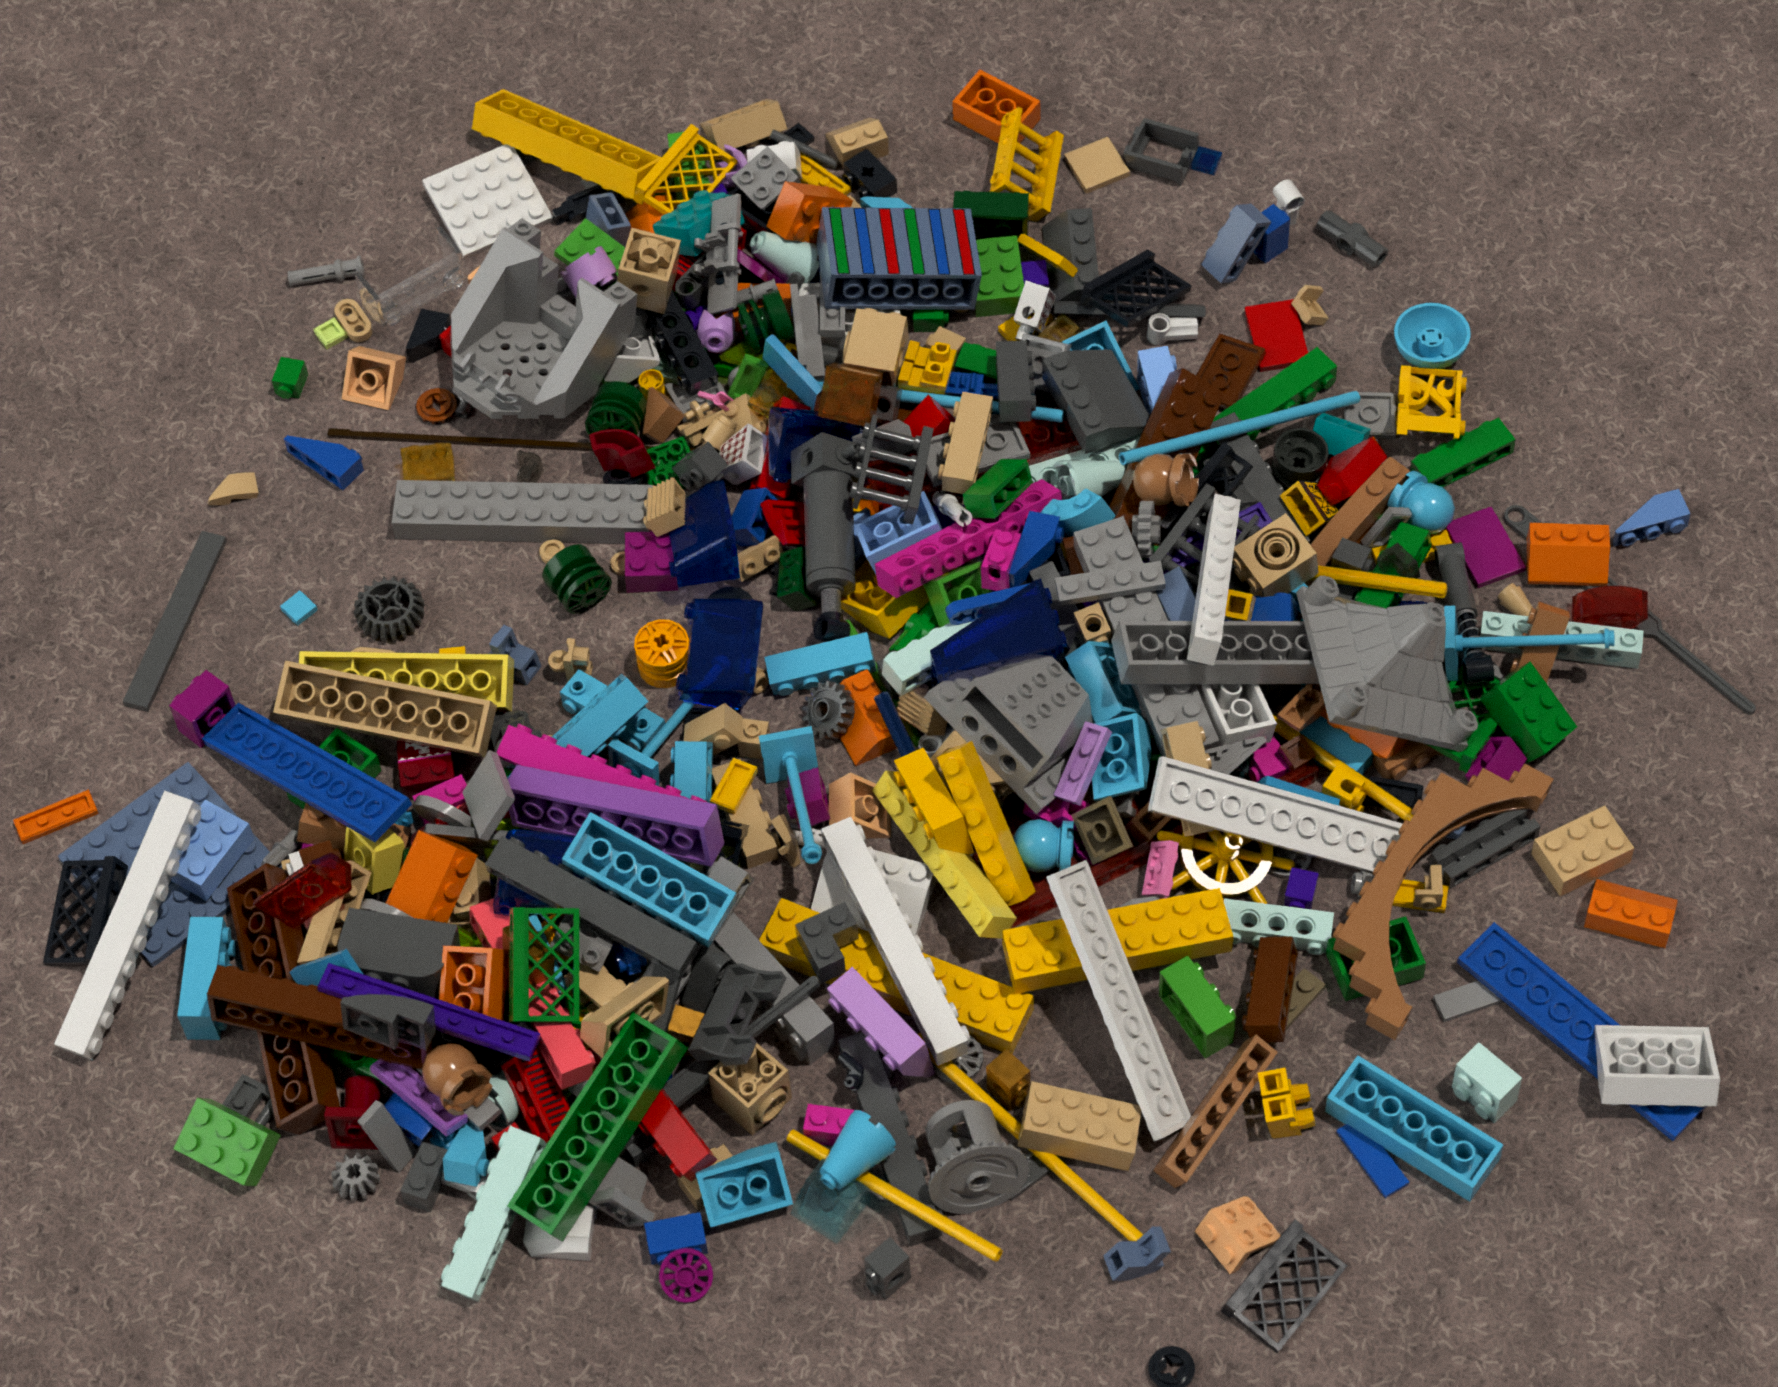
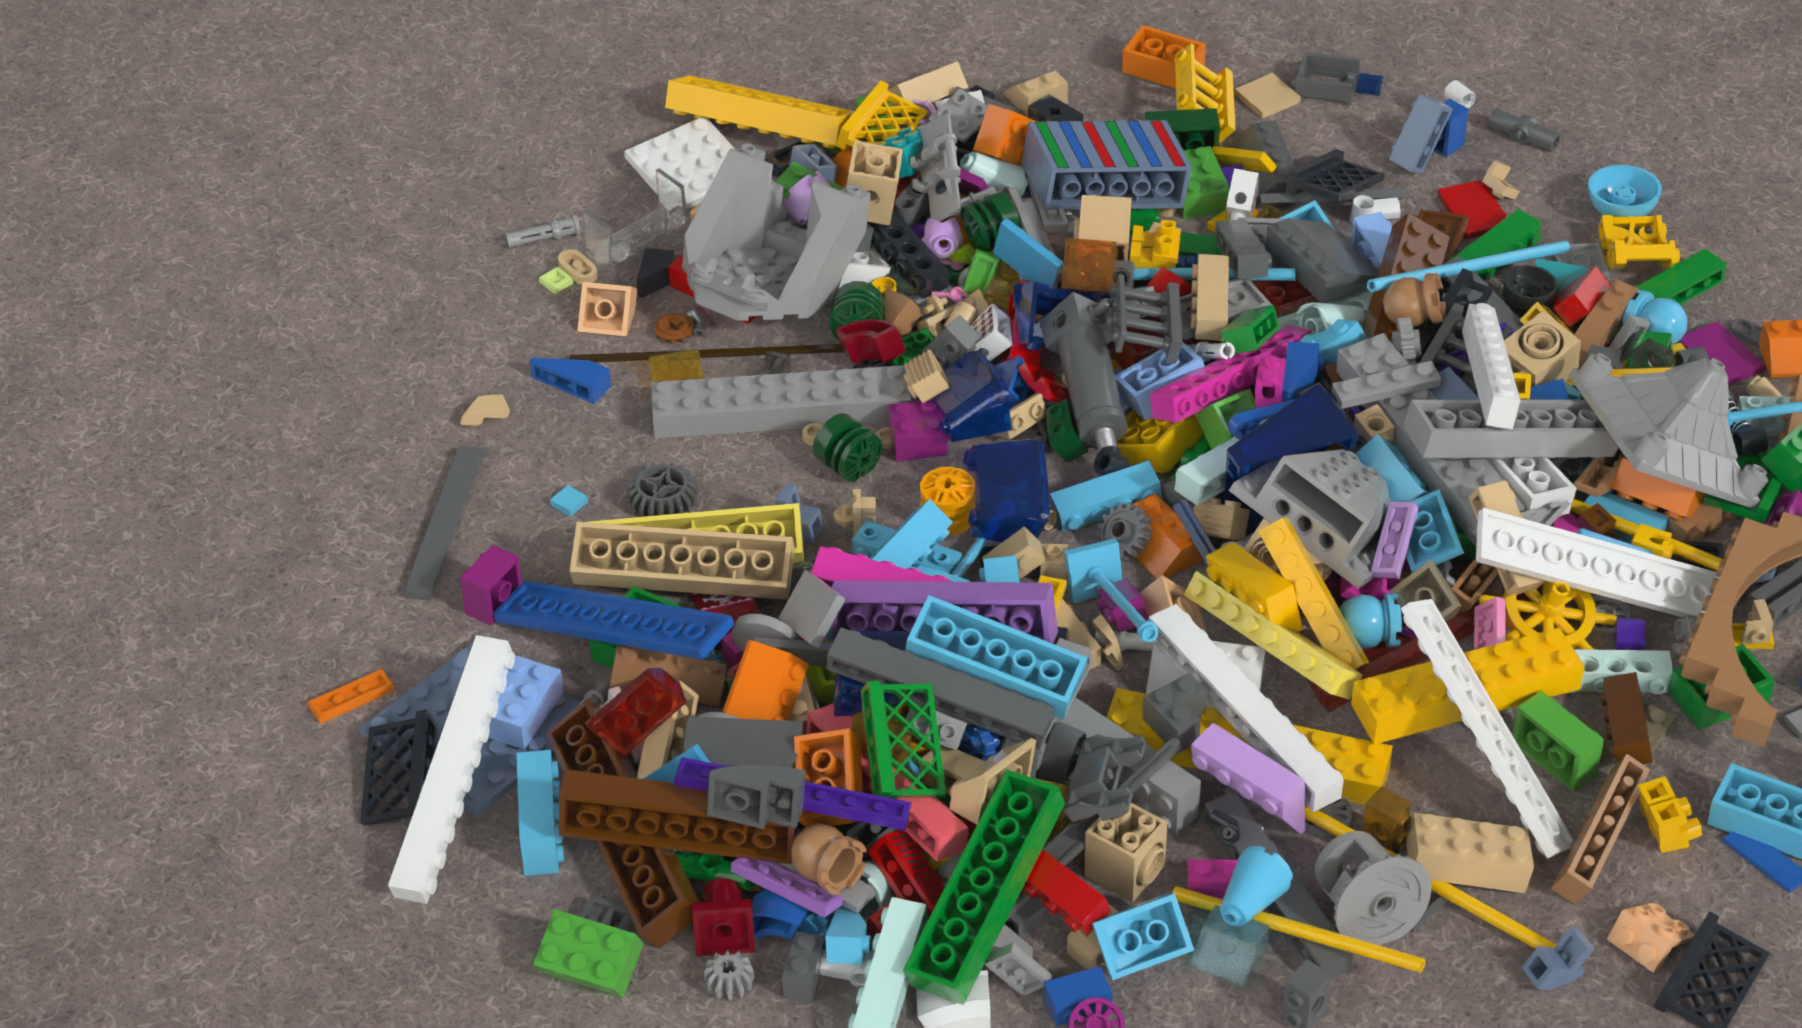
camera: 10 degrees left, 15 degrees down
(289, 377) = (524, 315): green brick -> none
(379, 857) = (703, 676): light yellow slope -> none
(387, 1136) = (759, 927): light grey tile -> none

